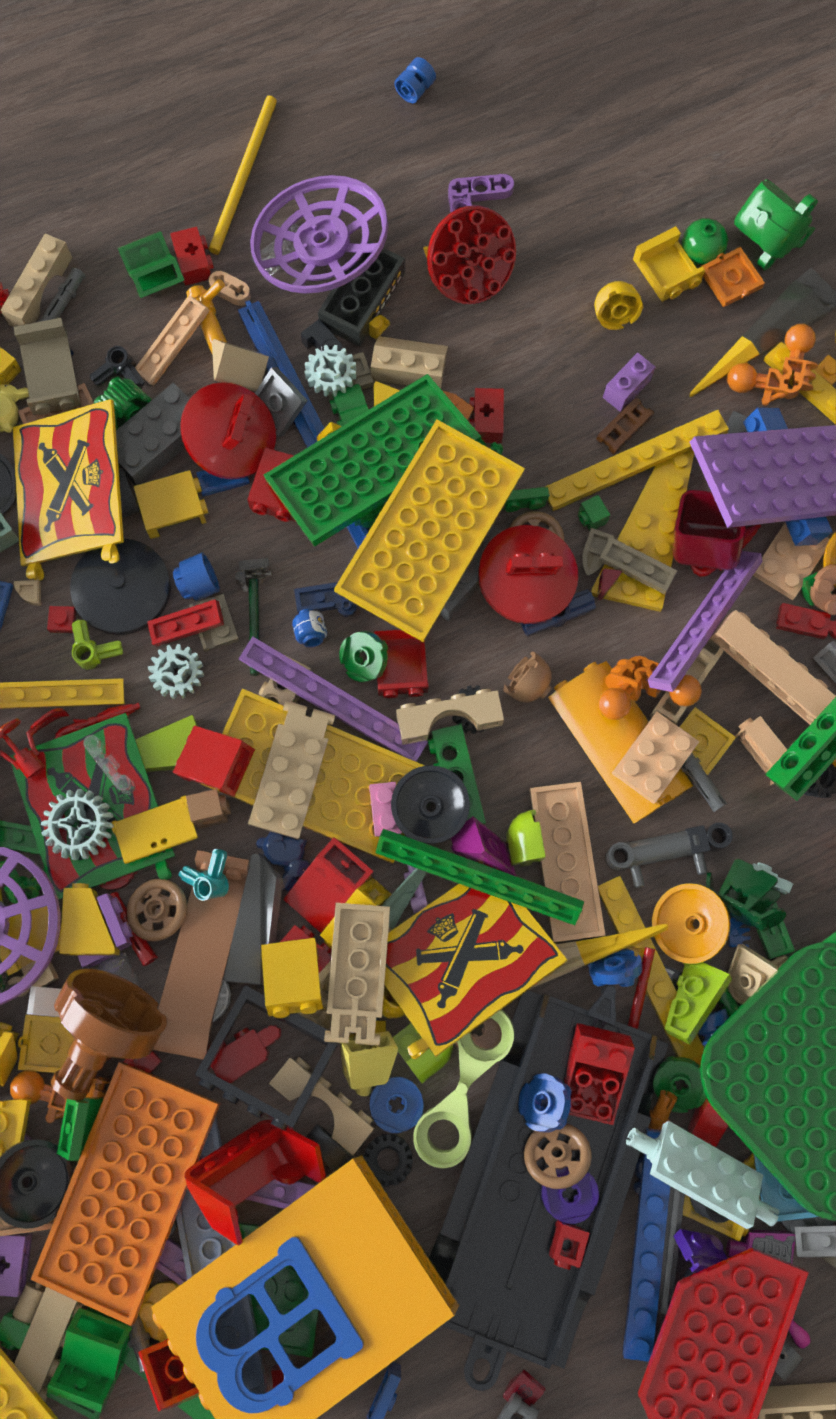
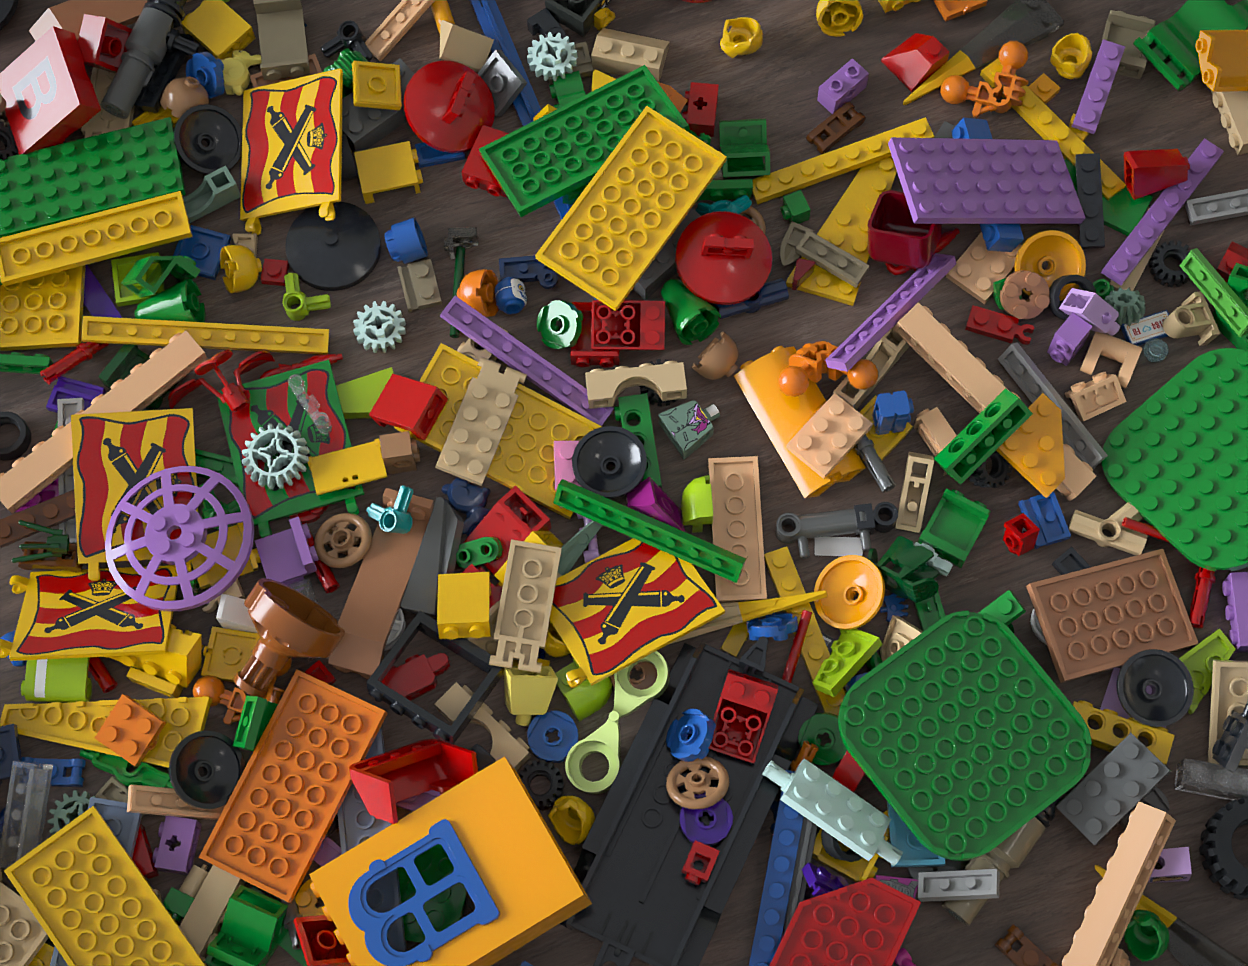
camera: 10 degrees right, 5 degrees down
(23, 618) = (240, 268): none -> yellow cylinder
(84, 924) = (275, 546): yellow slope -> none
(150, 414) = (376, 85): none -> yellow tile
(185, 623) = (392, 282): red plate -> none
(276, 628) = (478, 291): none -> orange cylinder
(298, 909) = (476, 552): none -> green plate
(426, 1197) = (572, 819): none -> yellow hair
(443, 654) = (631, 327): none -> red slope
(495, 634) = (689, 314): none -> green cone
(506, 754) = (688, 426): none -> sand green torso
(522, 518) = (737, 206): none -> teal axle
(523, 337) = (743, 37): none -> yellow hair
(536, 451) = (744, 145): none -> green piece
(575, 981) = (735, 639): none -> yellow window
(672, 870) = (838, 546): none -> white sticker
(699, 348) = (916, 60): none -> red slope
(718, 727) = (892, 412): none -> blue brick
(745, 804) = (914, 491): none -> tan slope
(788, 841) = (955, 527): none -> green panel

